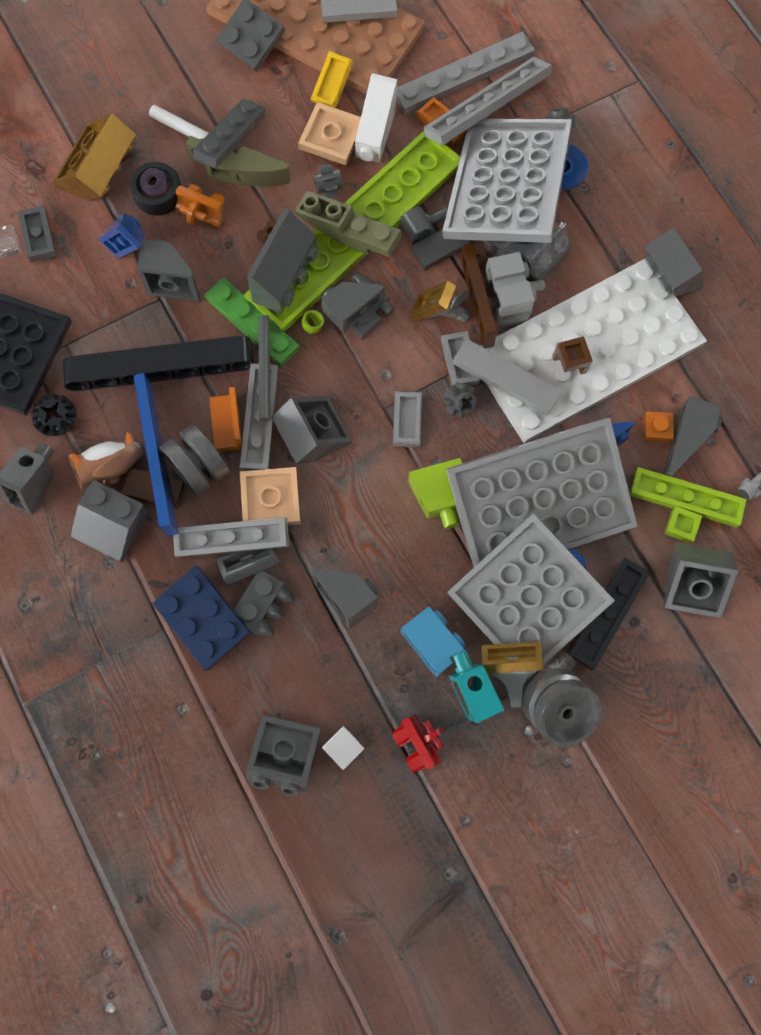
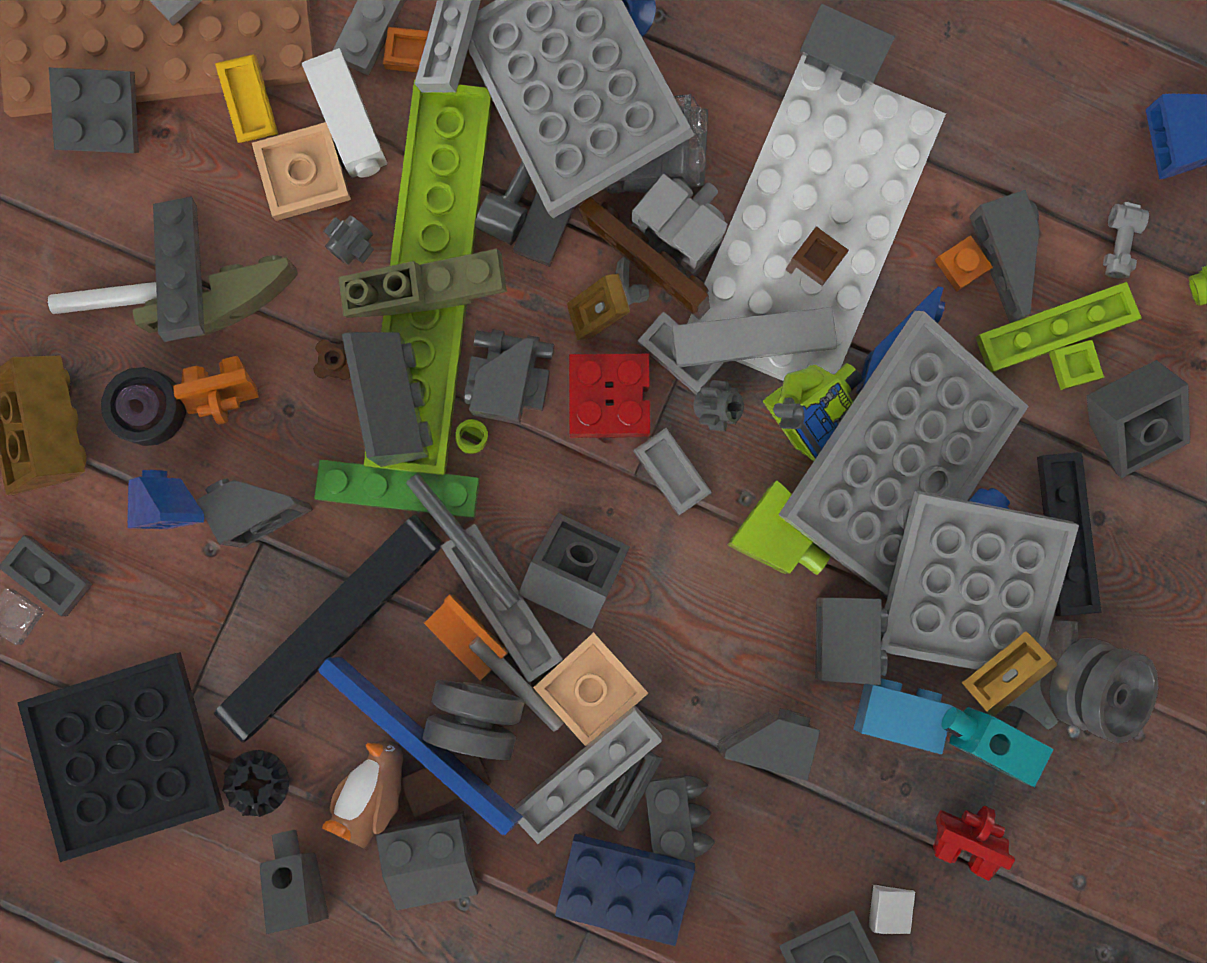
camera: 35 degrees left, 10 degrees up
(233, 464) = (516, 683): none -> light grey bar
(403, 354) = (608, 395): none -> red piece
(433, 572) = (850, 640): none -> dark grey slope
(510, 426) = (812, 405): none -> torso

